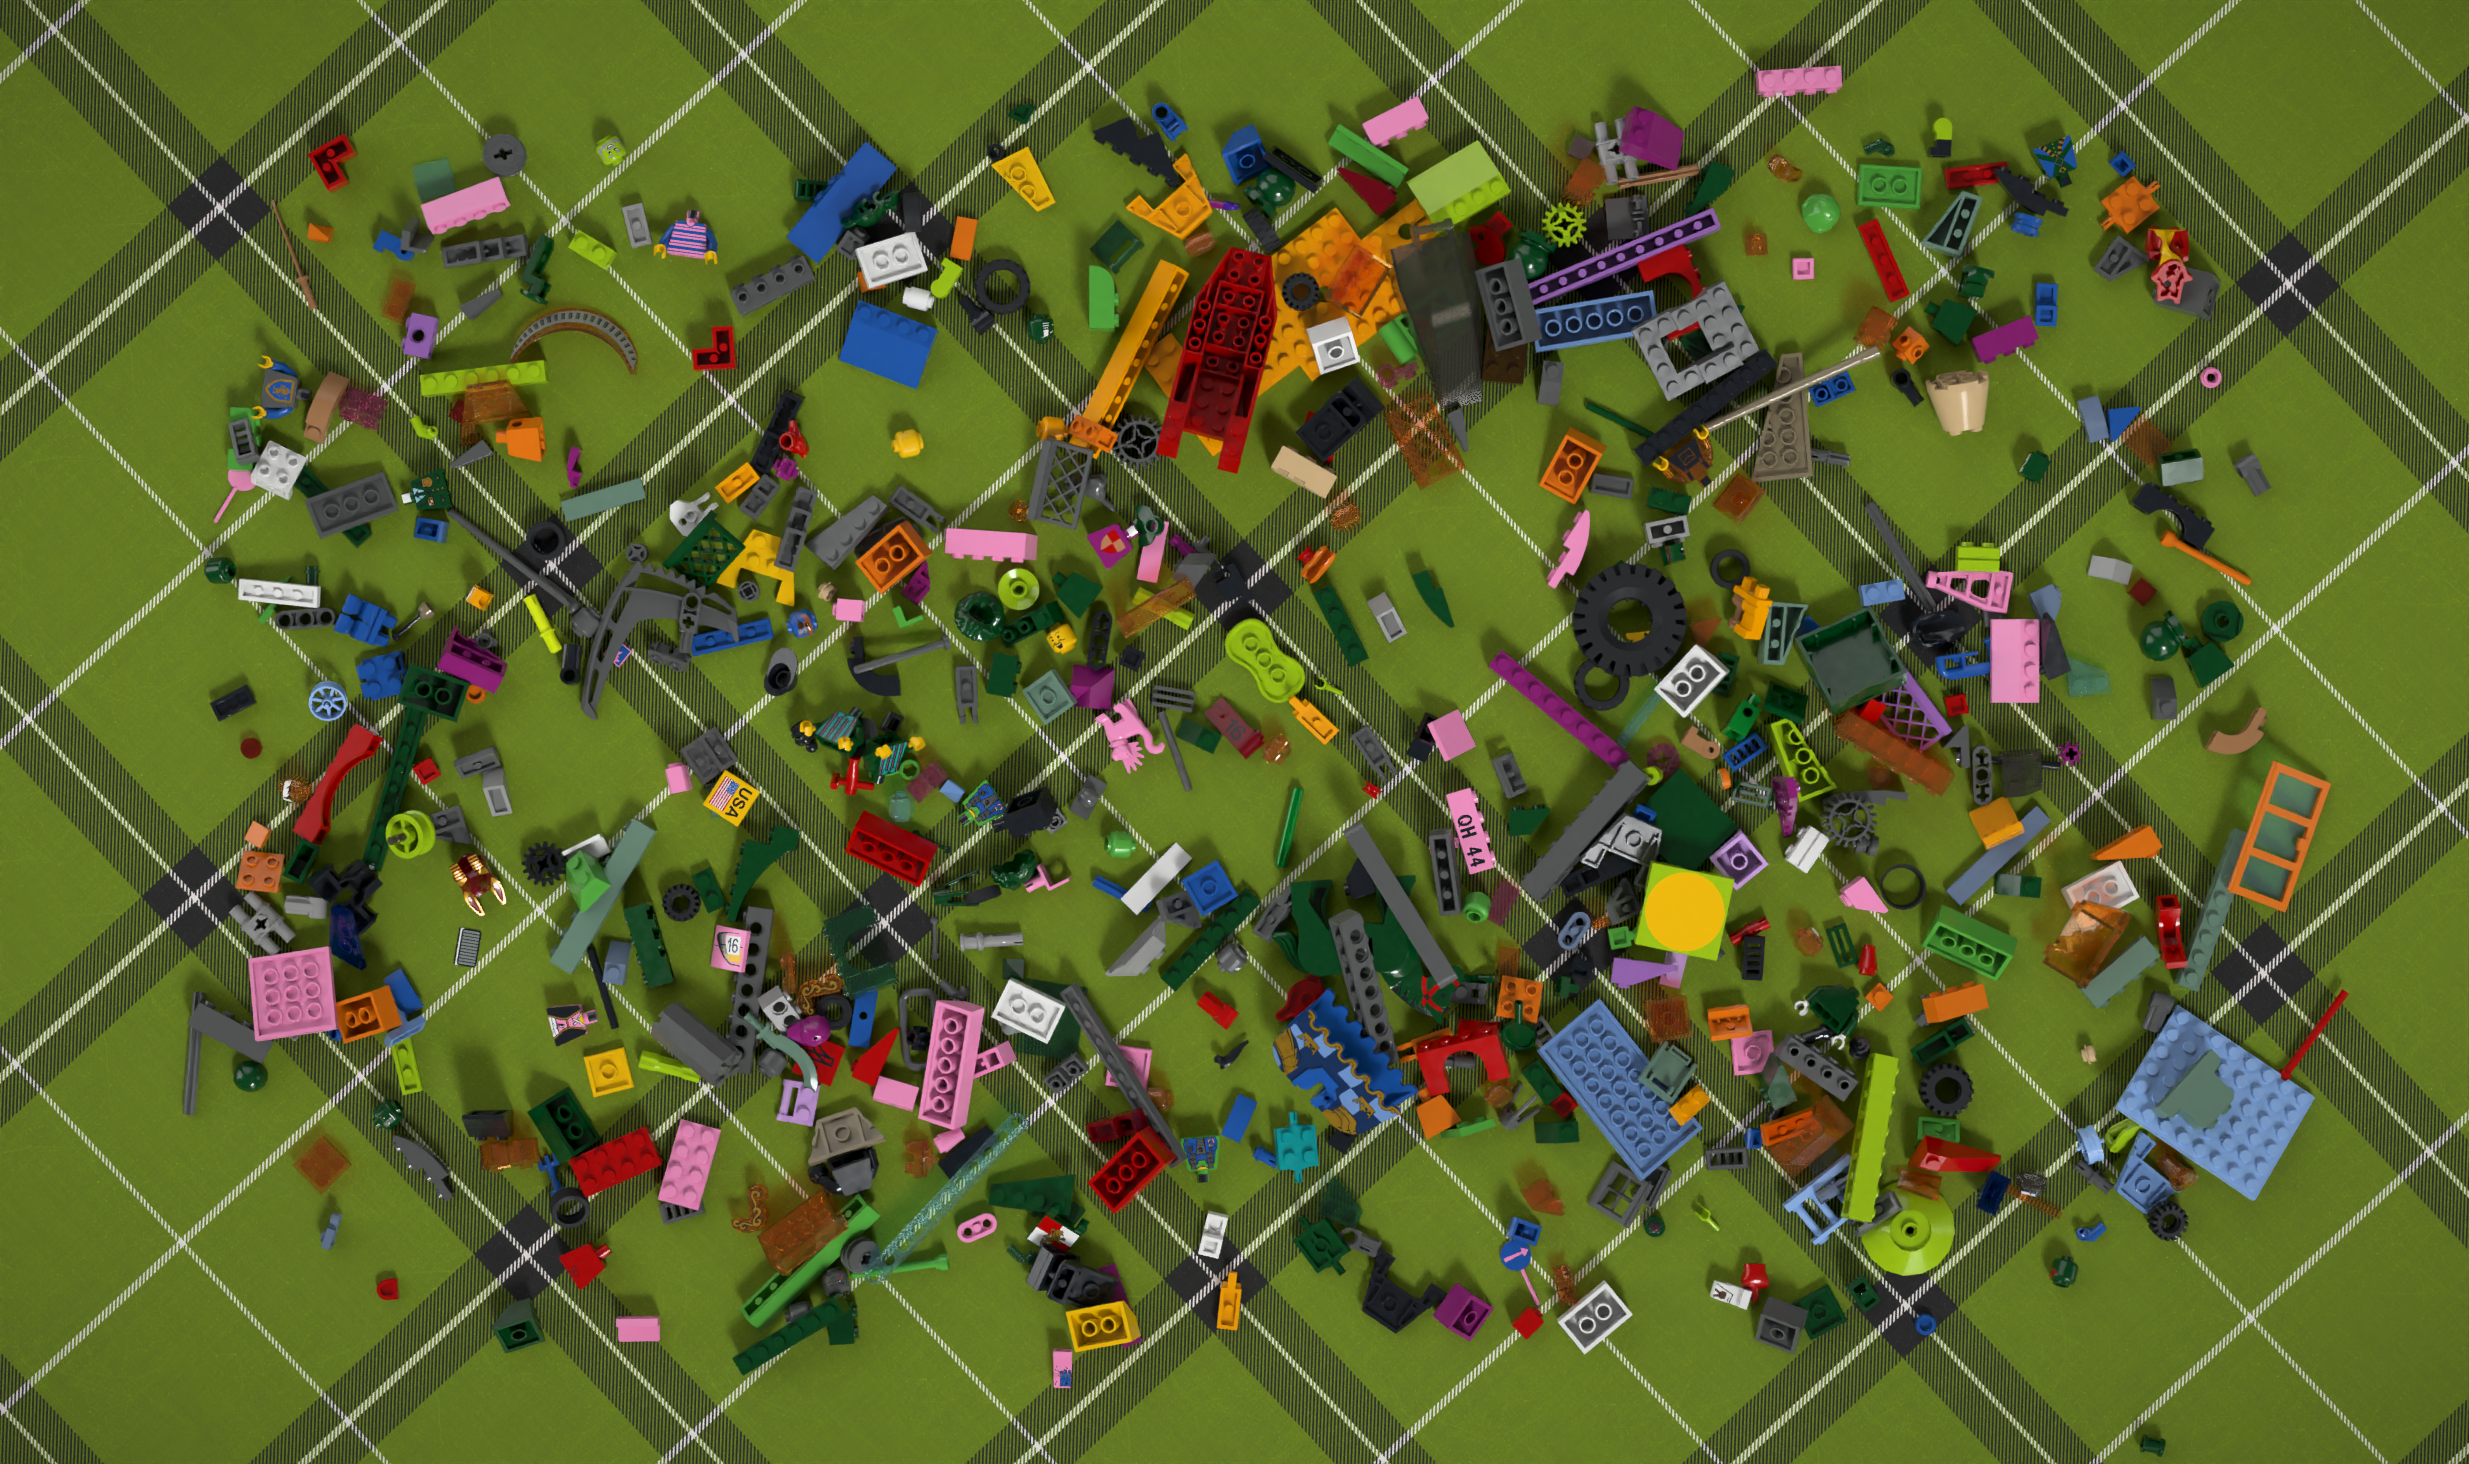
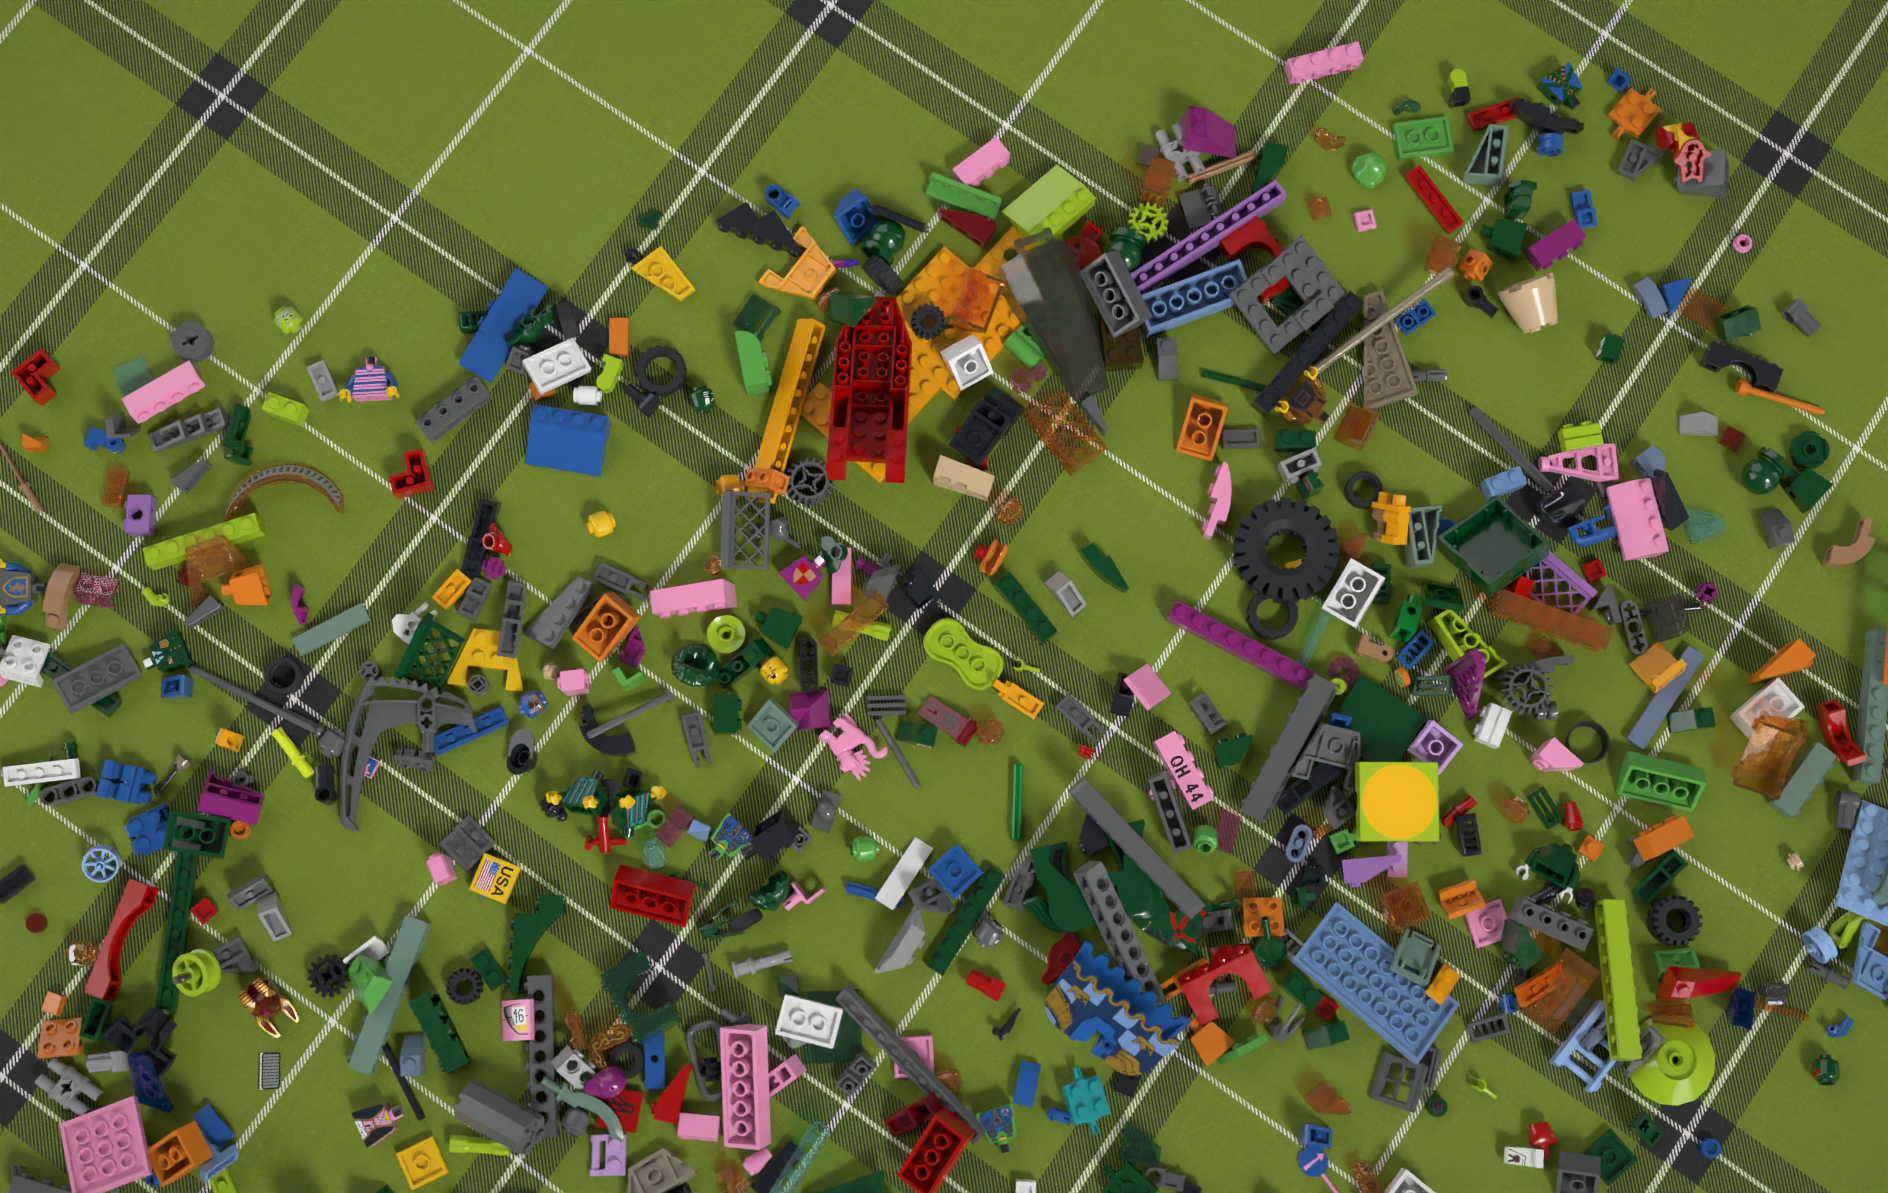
camera: 15 degrees left, 10 degrees down
(1218, 259) = (848, 307): none -> dark green slope

